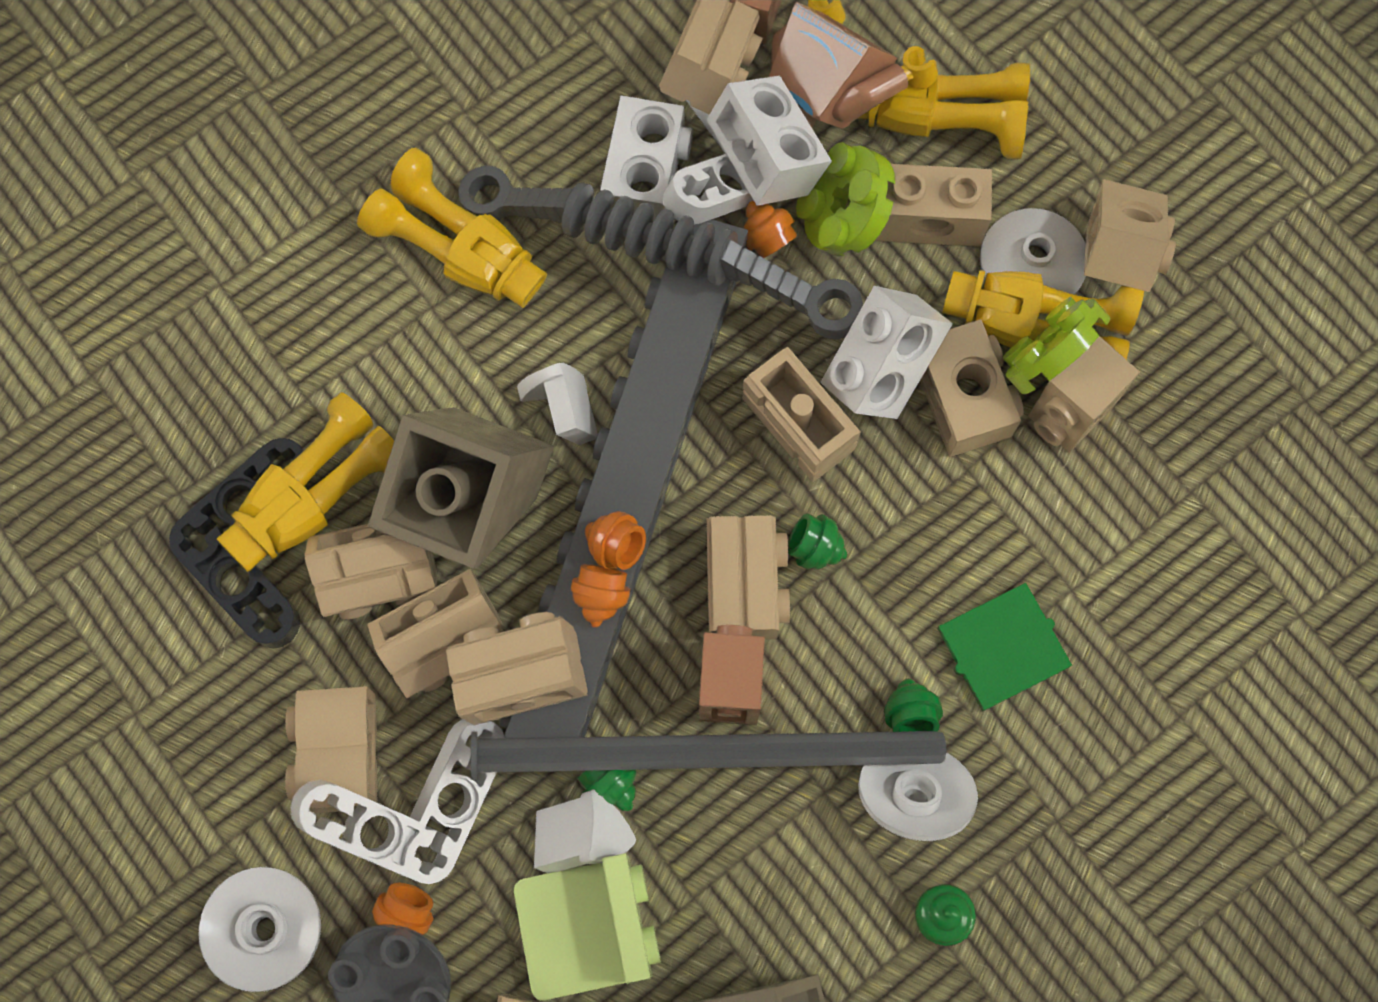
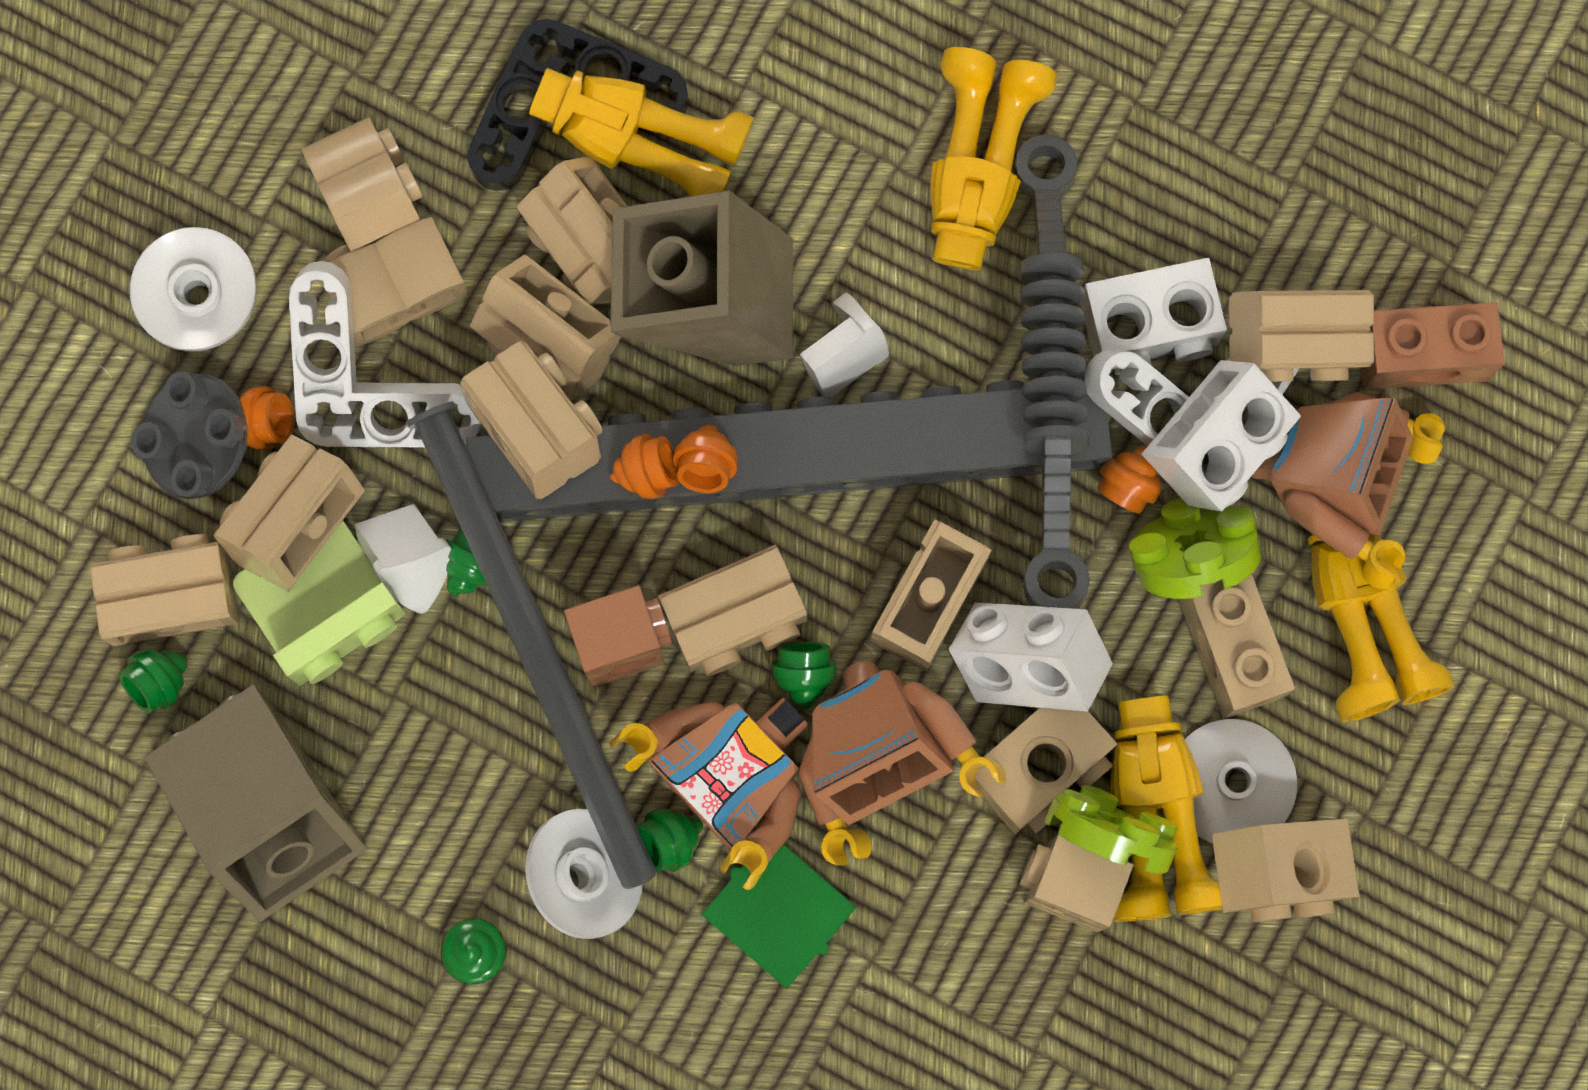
camera: 65 degrees right, 5 degrees up
(238, 737) = (362, 183): none -> tan brick
(499, 921) = (288, 512): none -> tan brick
(882, 636) = (727, 773): none -> torso
(910, 503) = (879, 747): none -> nougat torso

